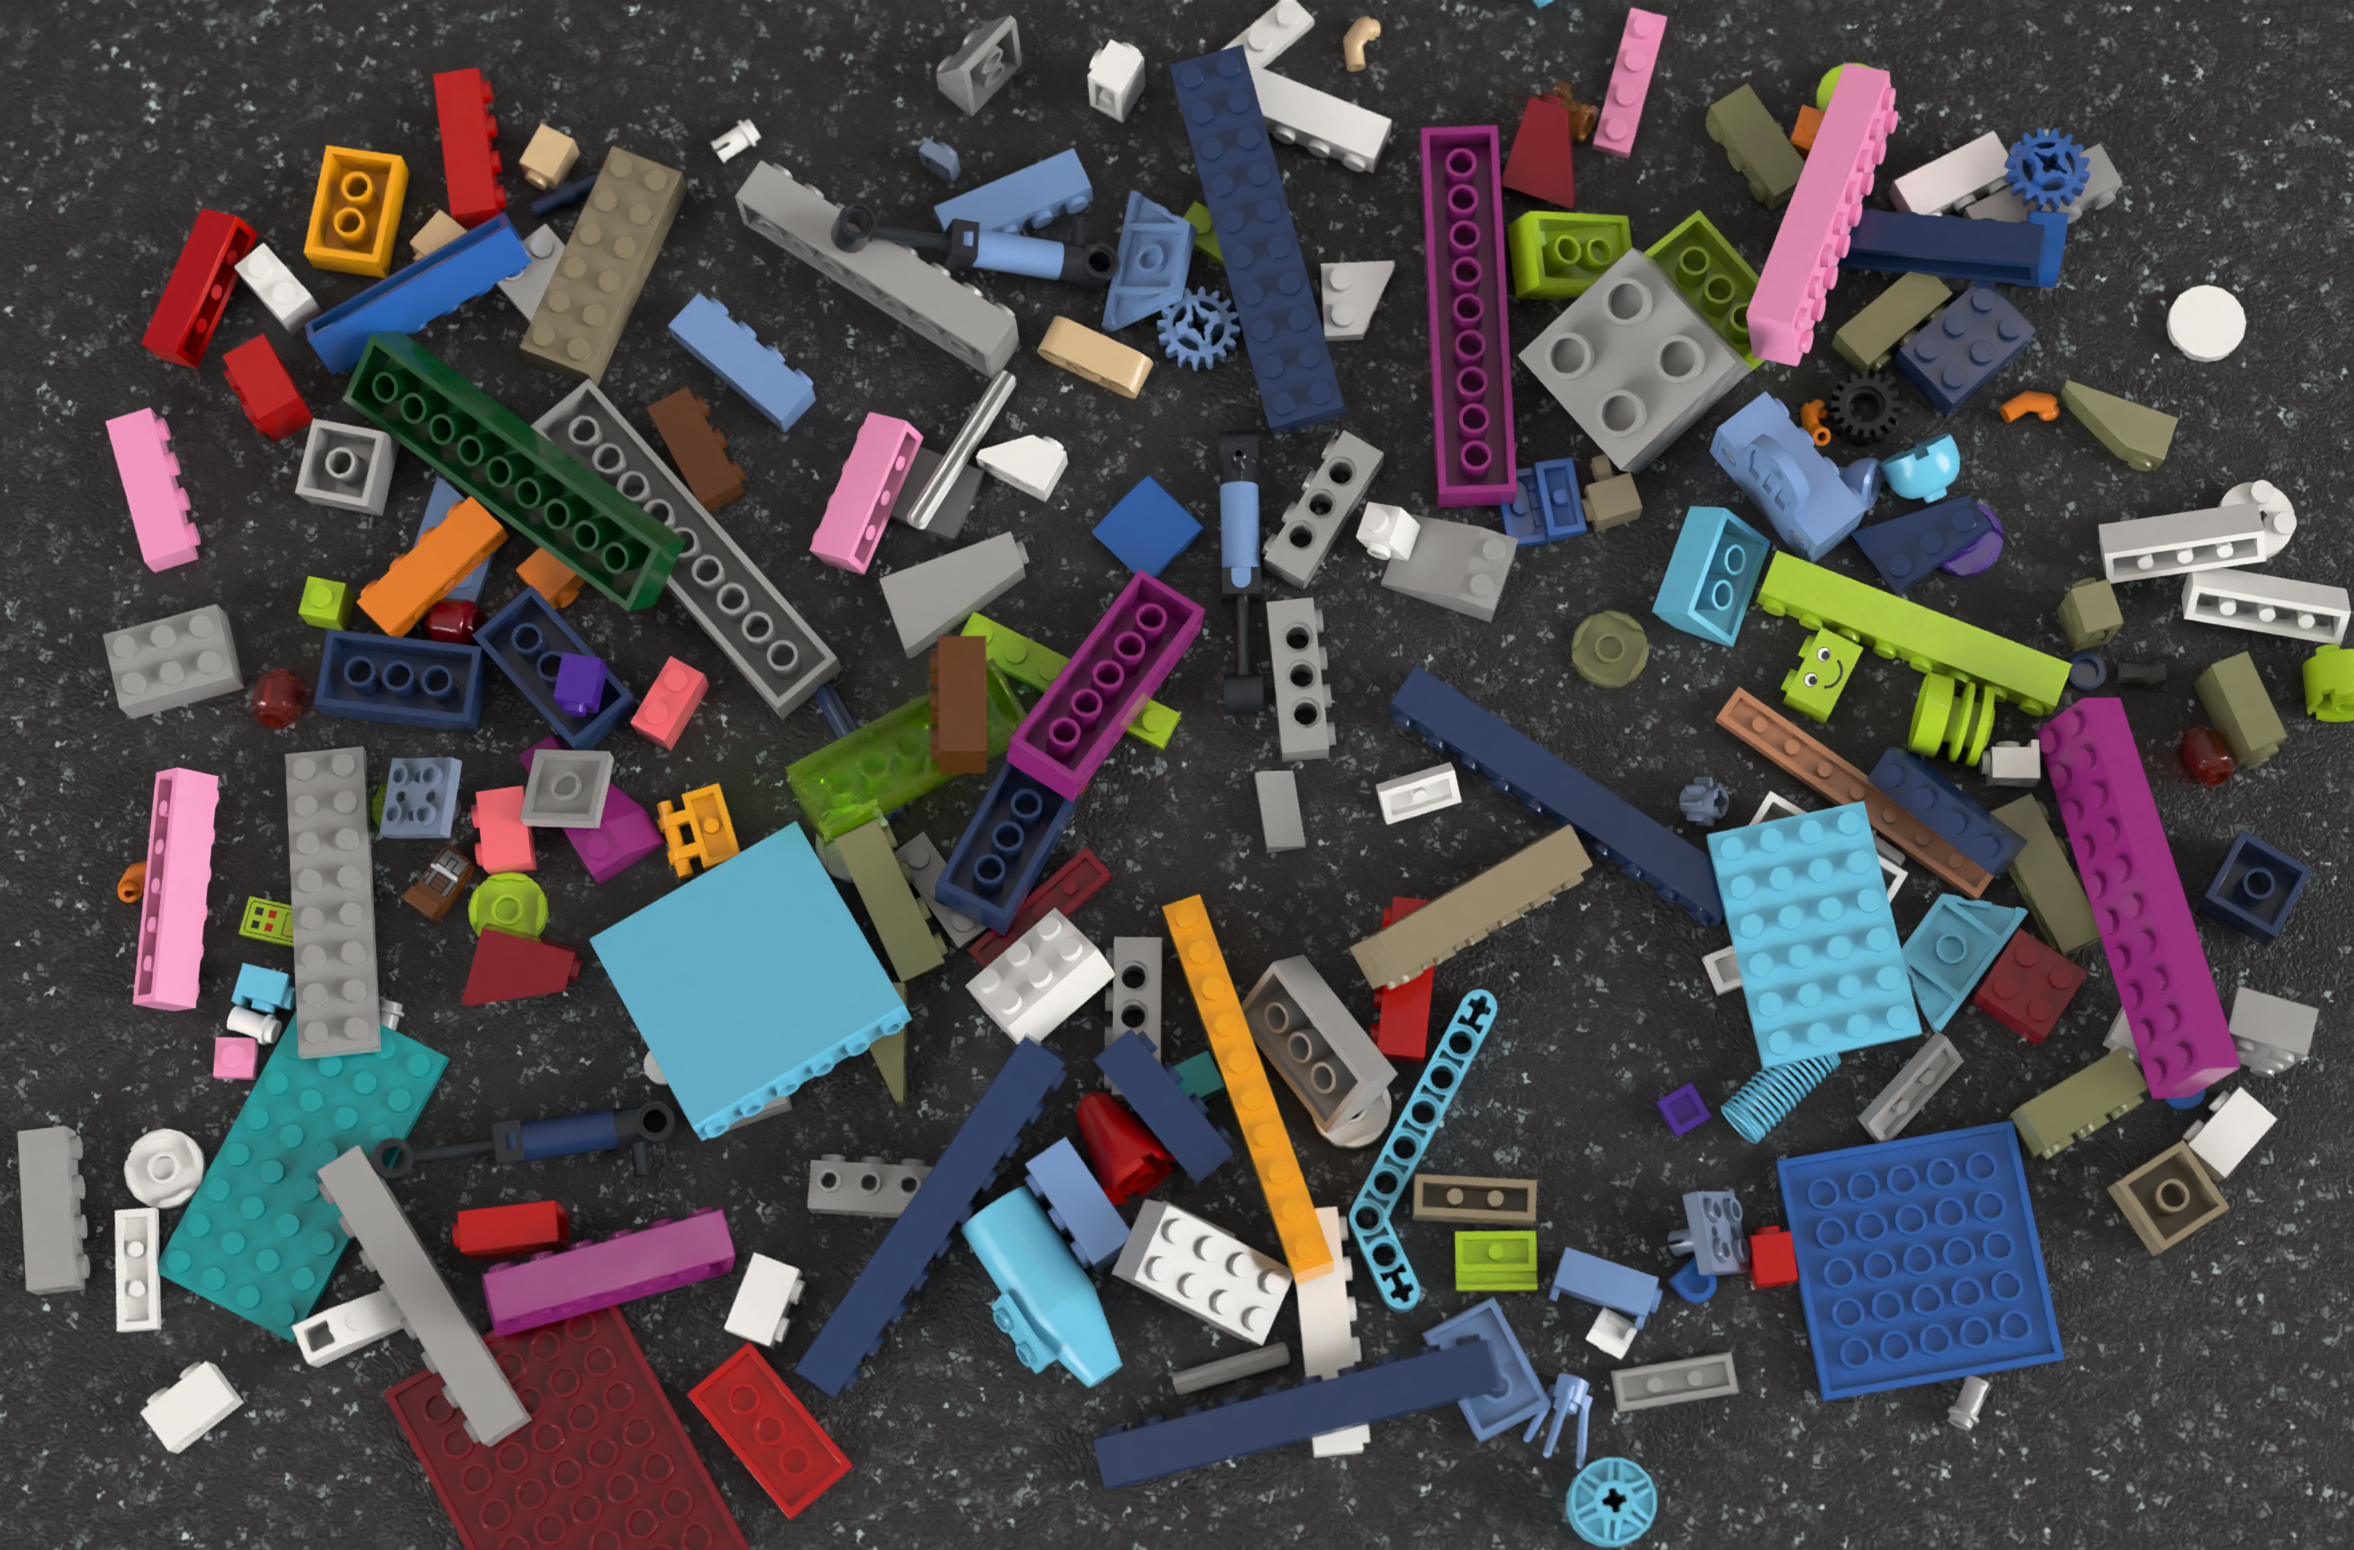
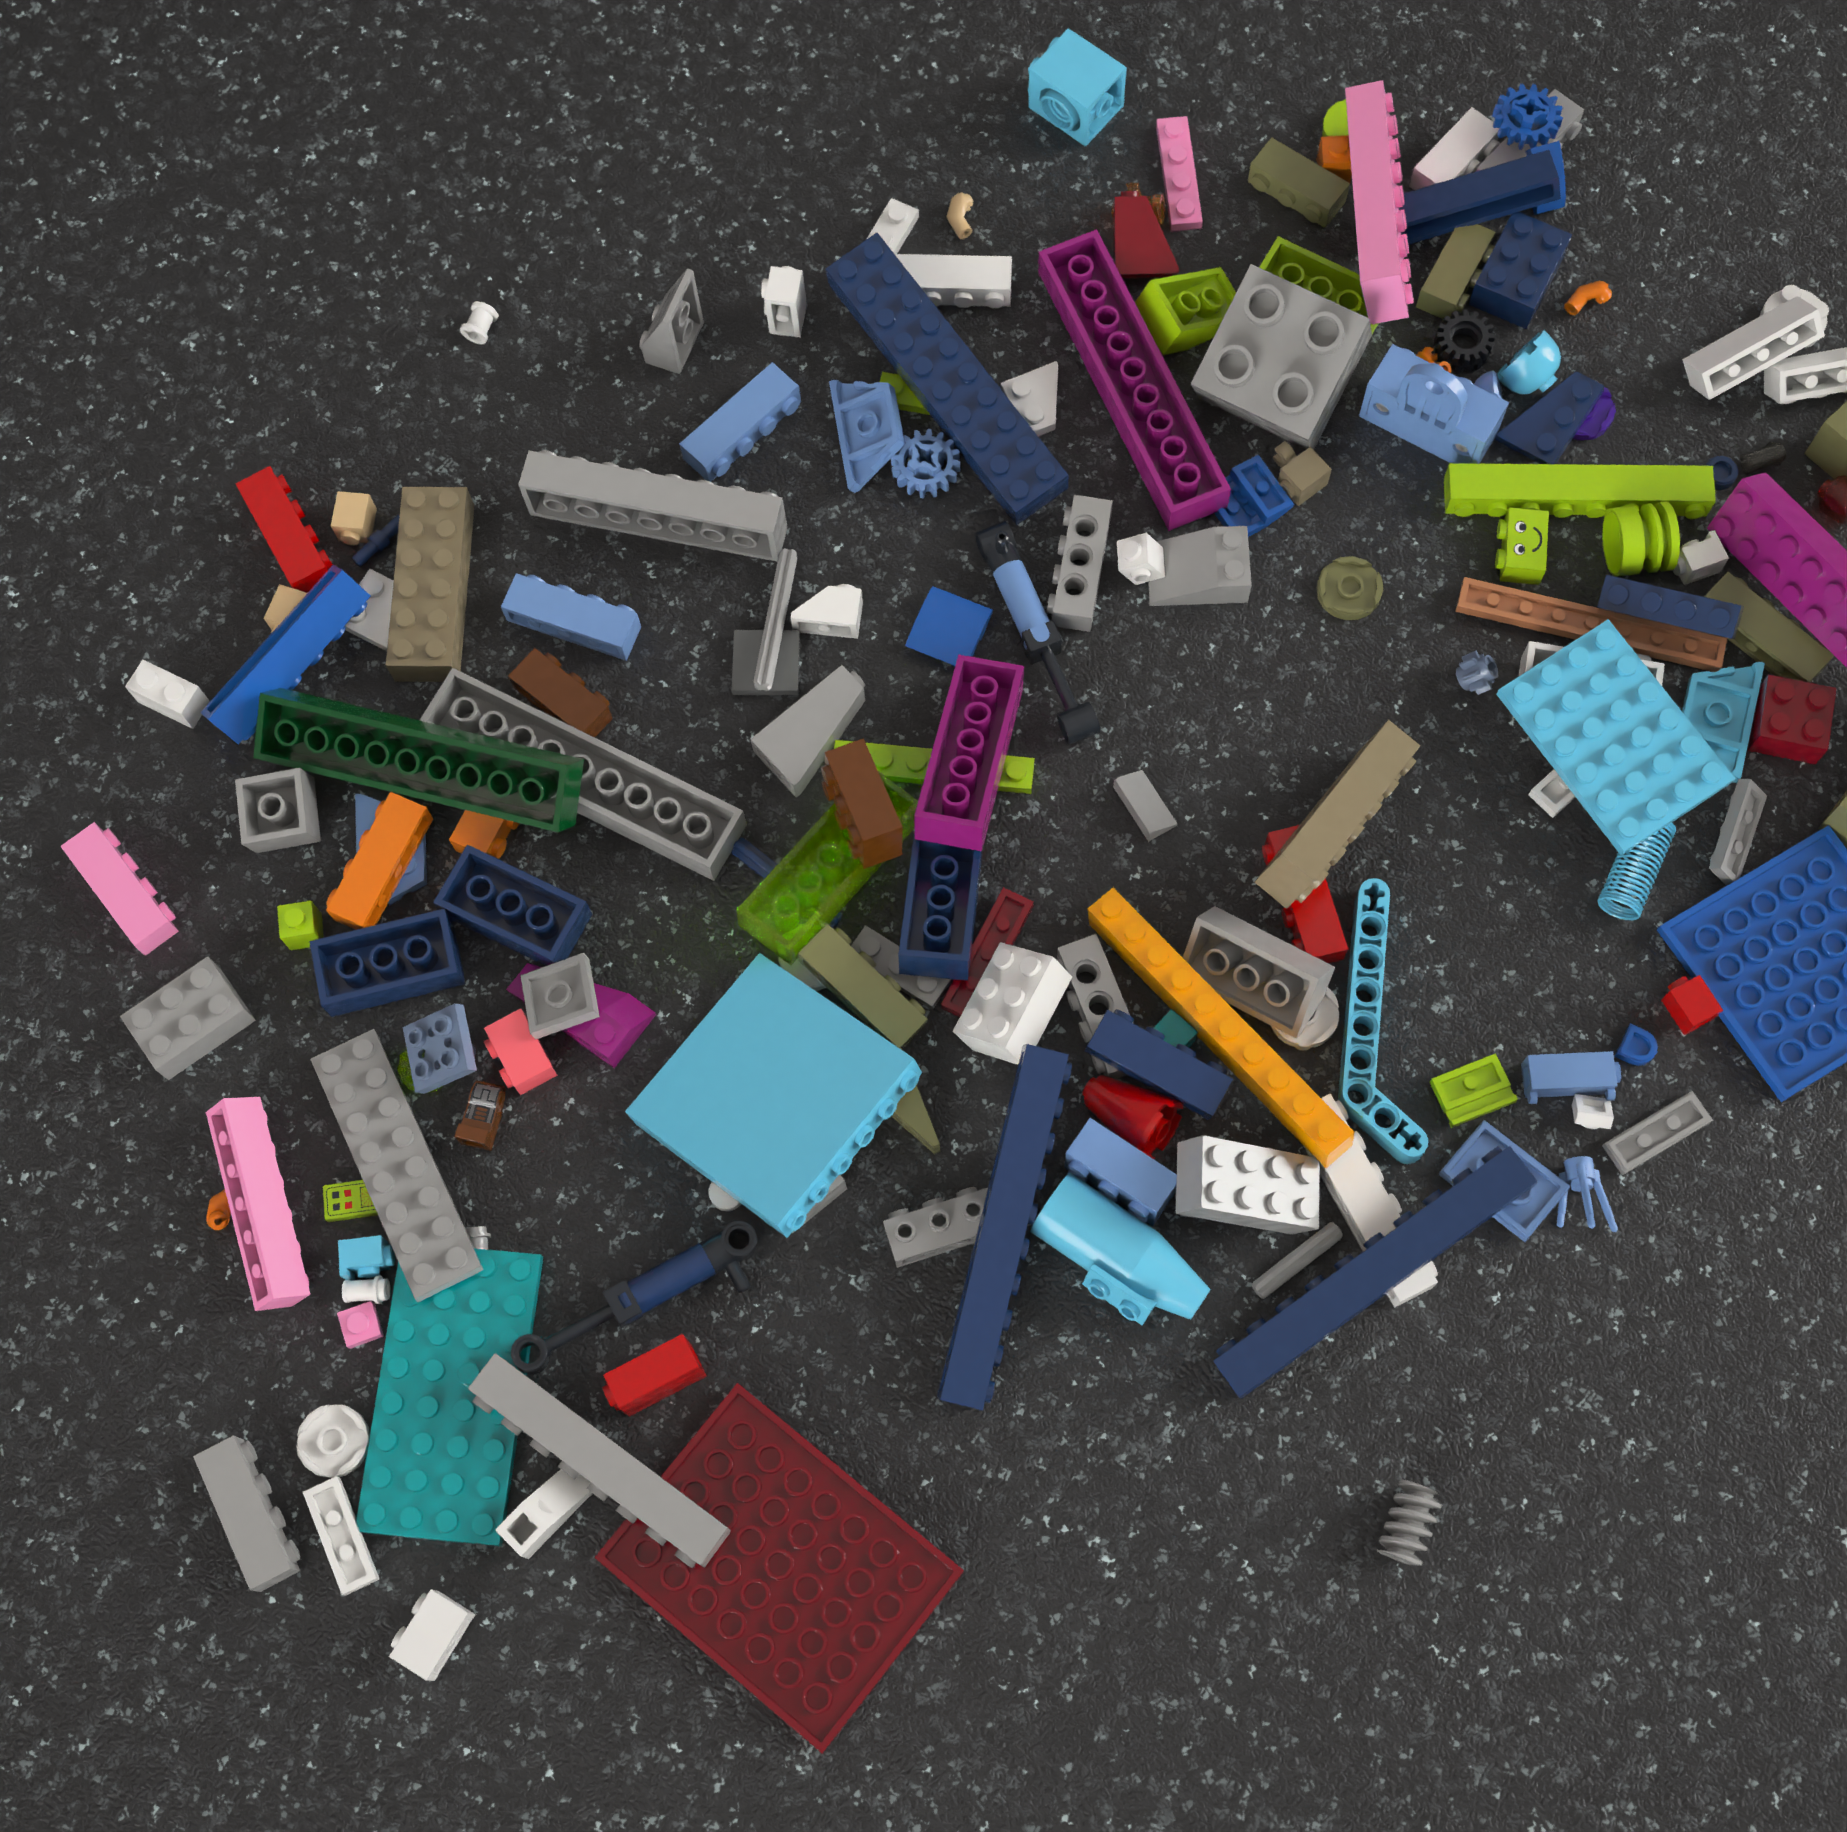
camera: 20 degrees left, 5 degrees down
(199, 284) = (101, 716): red brick -> none
(266, 389) = (187, 772): red brick -> none
(278, 699) = (287, 1016): clear red head -> none
(356, 211) = (211, 611): light orange brick -> none
(454, 621) = (412, 899): dark red head -> none
(510, 902) = (546, 1116): lime tile -> none
(518, 966) = (573, 1156): dark red slope -> none
(580, 684) = (539, 905): dark purple brick -> none
(608, 1272) = (750, 1377): magenta brick -> none
(670, 703) = (617, 900): coral brick -> none
(710, 825) = (689, 986): light orange plate -> none
(736, 140) = (499, 453): white pin -> none
(765, 1301) = (889, 1354): white brick -> none
(770, 1430) = (937, 1460): red plate -> none
(866, 493) = (712, 679): bright pink brick -> none
(940, 159) = (668, 411): sand blue plate -> none
(969, 247) = (720, 458): black piece -> none
(1095, 357) = (852, 513): tan beam -> none
(1285, 620) = (1134, 743): light grey brick -> none
(1418, 793) = (1250, 749): white plate -> none
(1474, 1200) = (1437, 1046): dark tan brick -> none
(1559, 792) = (1364, 708): dark blue brick -> none
(1597, 1522) = (1642, 1261): medium azure wheel -> none
(1683, 1110) = (1568, 915): dark purple plate -> none
(1711, 575) = (1404, 502): medium azure slope -> none
(1713, 1234) = (1638, 1000): sand blue plate -> none
(2089, 614) = (1708, 424): olive brick -> none
(2125, 427) = (1667, 285): olive slope -> none
(2206, 323) = (1689, 192): white tile -> none

